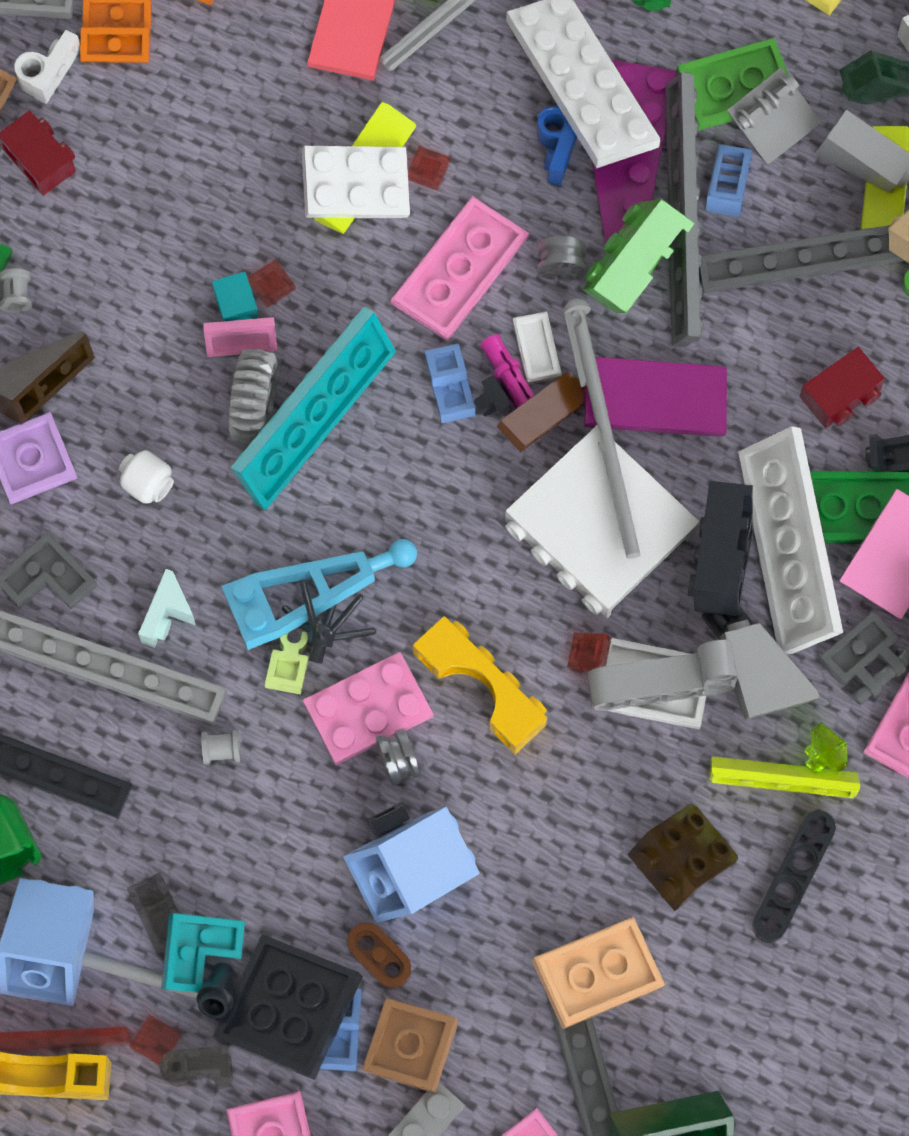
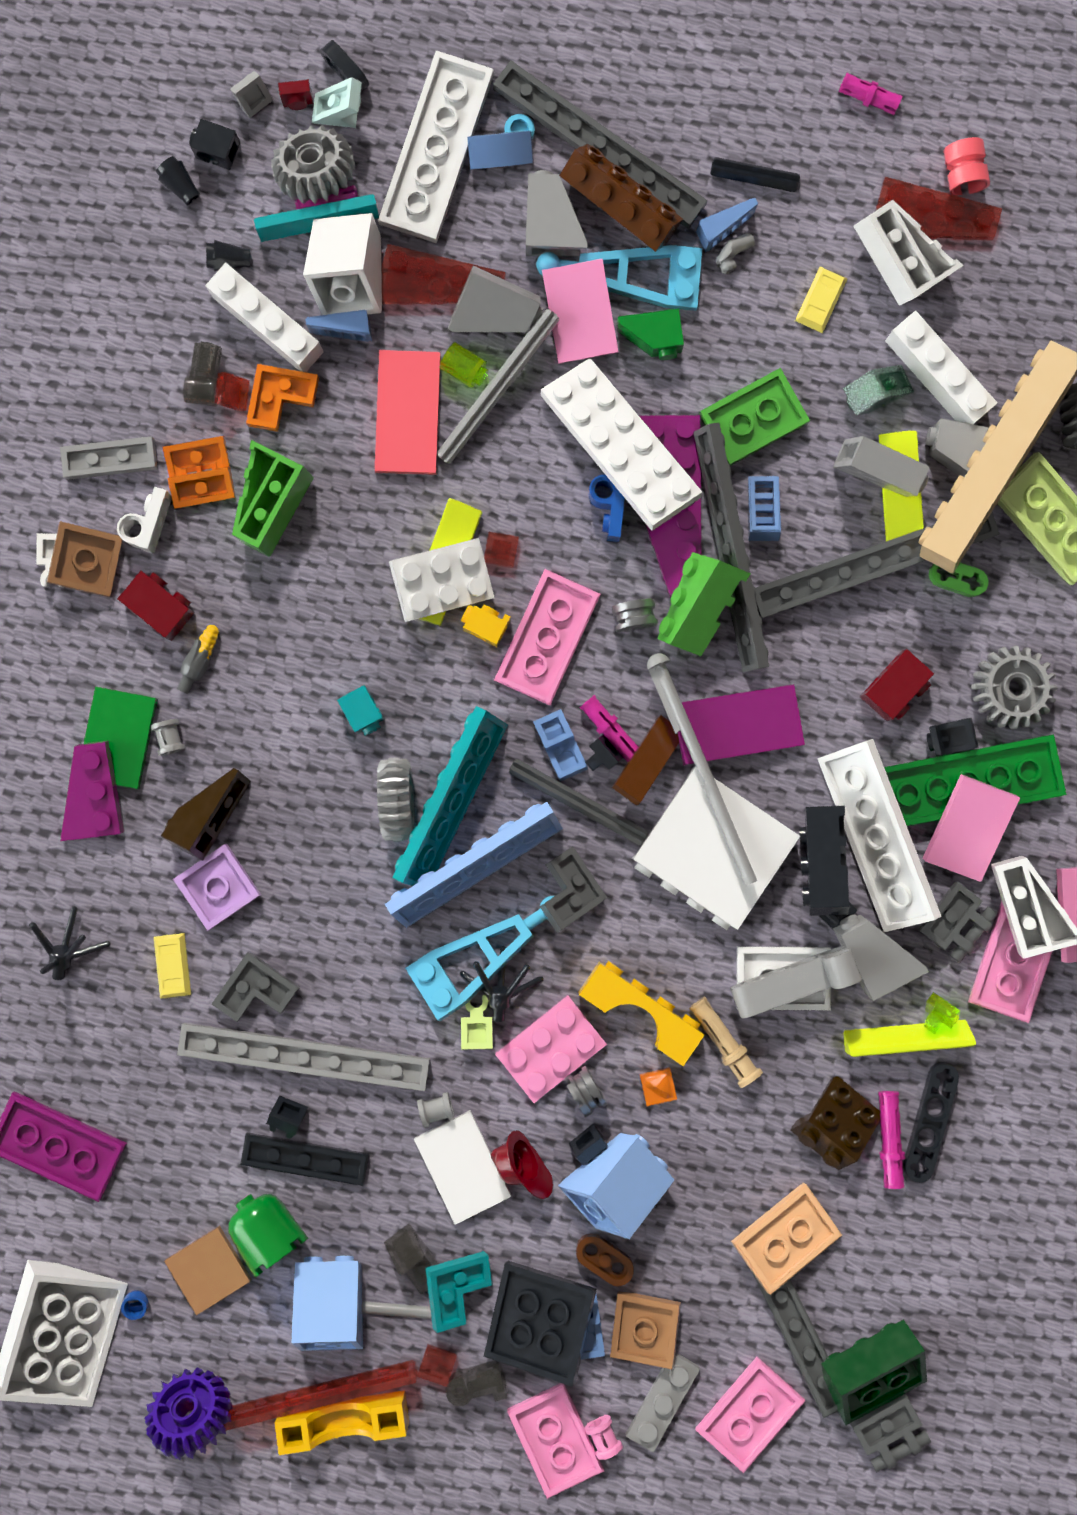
camera: 15 degrees left, 15 degrees up
(48, 719) = (286, 1116): none -> black tile
(68, 217) = (198, 658): none -> dark grey piece
(145, 477) = (319, 886): white head -> none
(167, 602) = (364, 991): light aqua slope -> none
(187, 65) = (268, 498): none -> bright green wedge
(216, 994) = (479, 1321): black cone -> none
(234, 336) = (372, 742): bright pink tile -> none
(237, 820) = (462, 1167): none -> white tile
(271, 283) = (387, 684): clear red tile -> none
(303, 824) = (521, 1165): none -> dark red piece
(325, 482) = (475, 865): none -> light blue plate
(394, 239) = (485, 624): none -> yellow brick
(435, 537) = (579, 890): none -> dark grey plate
(455, 445) = (578, 802): none -> dark grey axle
(483, 774) = (658, 1086): none -> orange tile
(537, 348) = (628, 698): white tile -> none
(577, 752) = (733, 1054): none -> tan pin
(589, 651) = (726, 964): clear red tile -> none
(742, 901) = (891, 1140): none -> dark pink pin
(774, 115) = (794, 443): light grey hinge -> none

